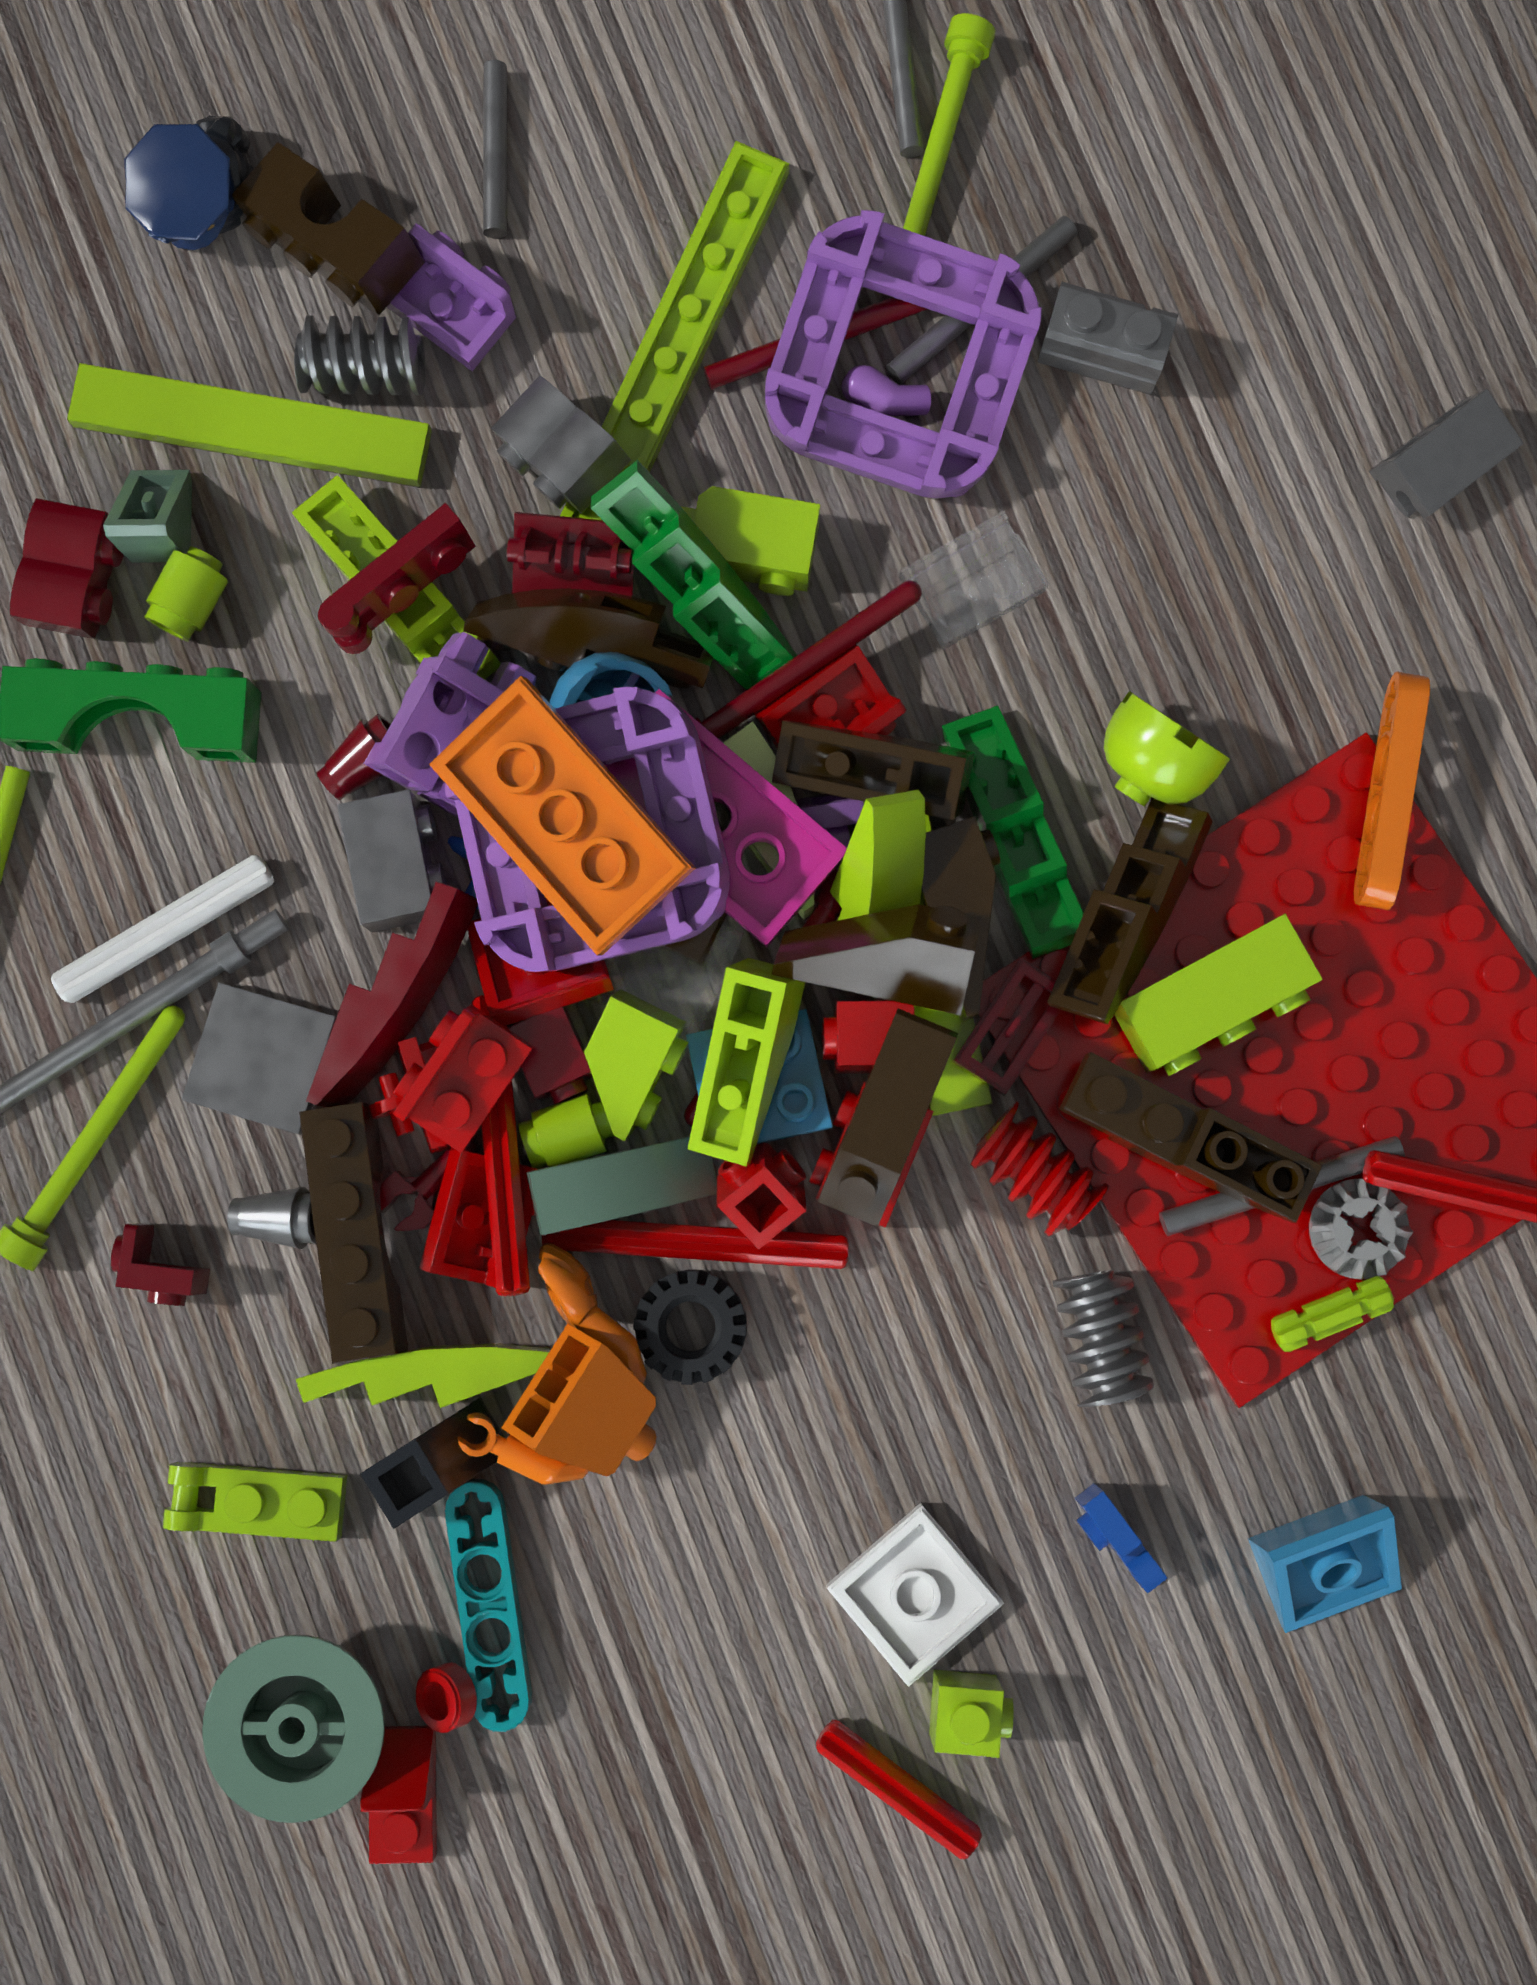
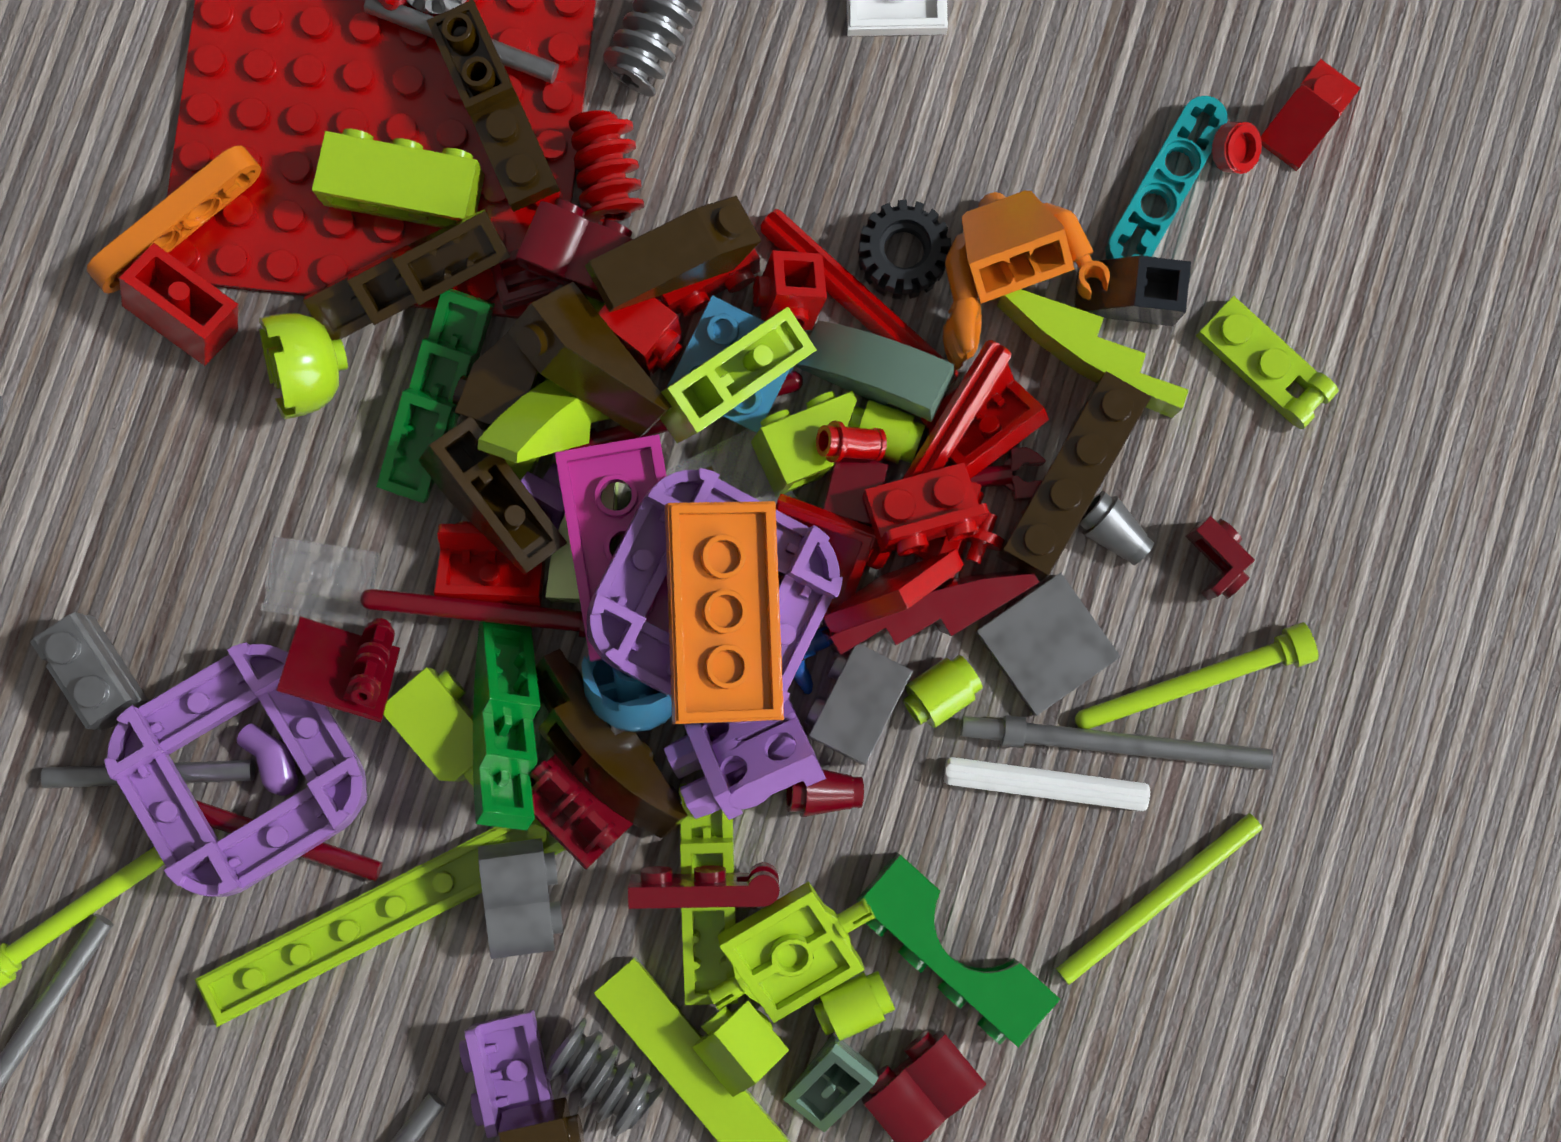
camera: 145 degrees left, 0 degrees up
(257, 476) = (739, 1047): none -> lime brick
(273, 587) = (790, 952): none -> lime plate
(293, 1728) = (1346, 194): sand green piece -> none
(323, 934) = (942, 691): none -> lime brick
(430, 976) = (894, 591): none -> red tile
(593, 1073) = (841, 442): none -> red pin
(884, 512) = (342, 667): none -> dark red hinge
(997, 1057) = (564, 242): none -> dark red brick
(1318, 717) = (179, 304): none -> red brick

